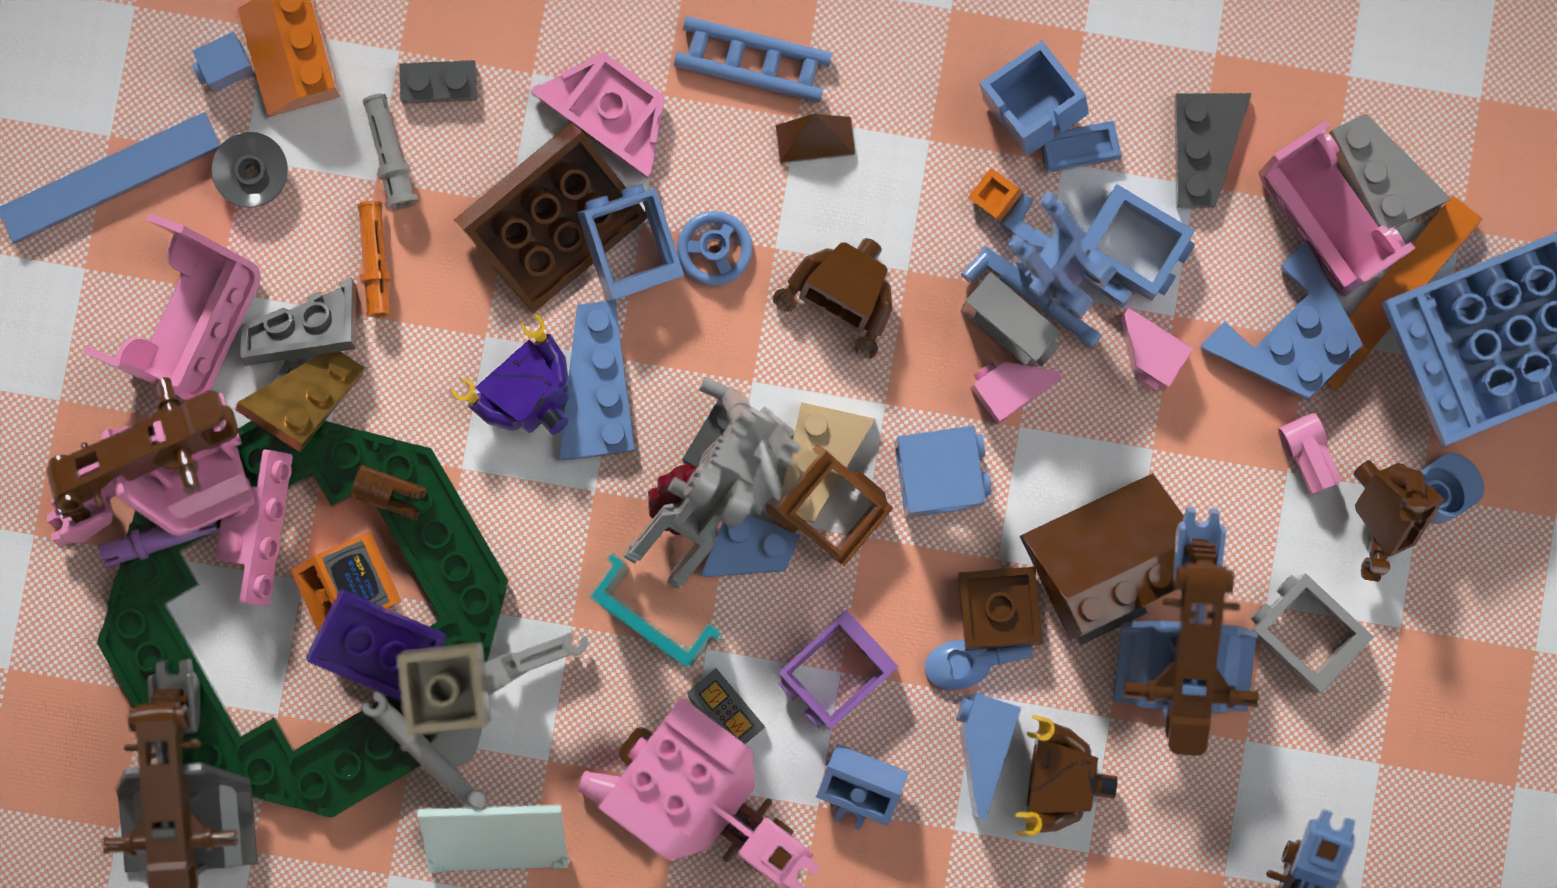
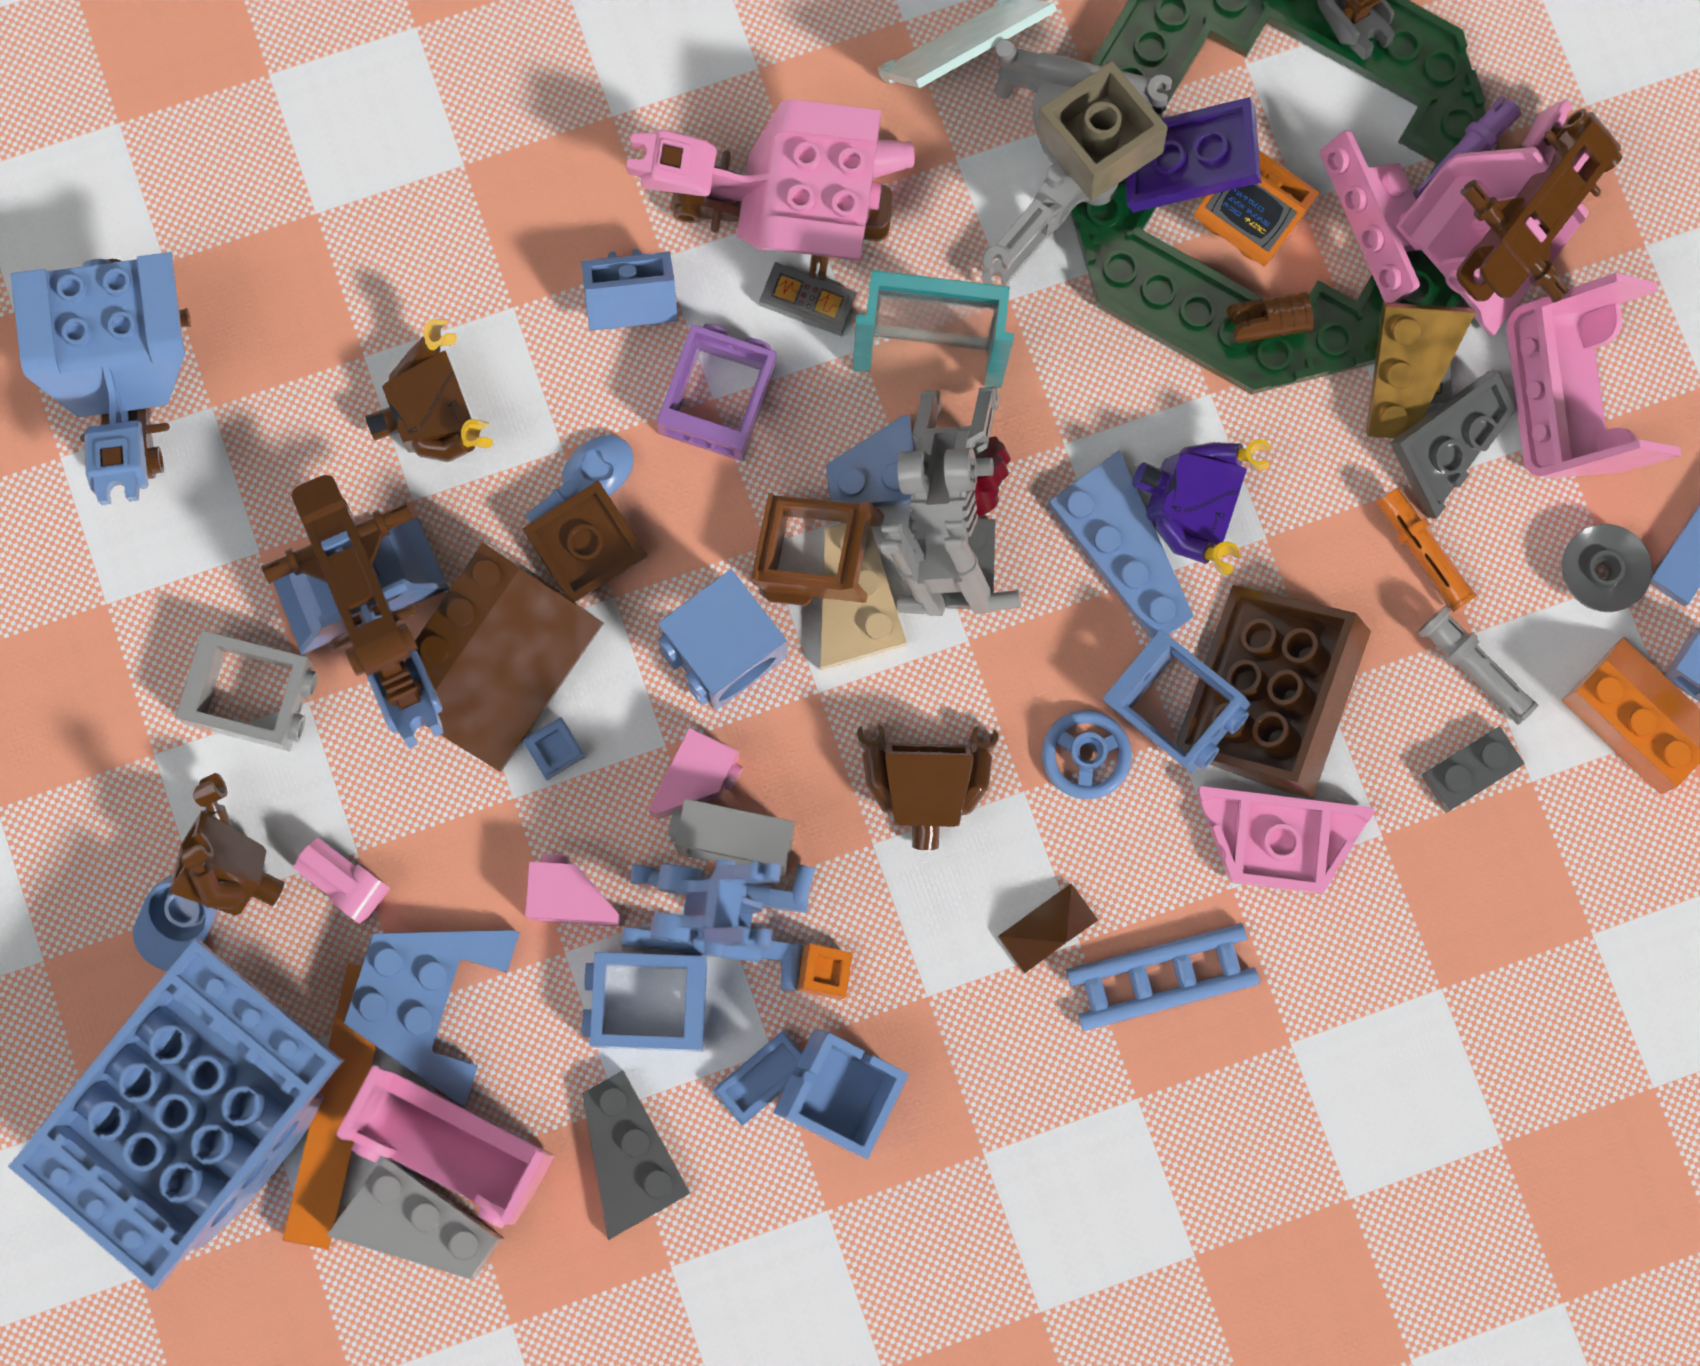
camera: 150 degrees right, 5 degrees down
(985, 742) = (532, 410): medium blue slope -> none
(1104, 468) = (553, 748): none -> medium blue tile

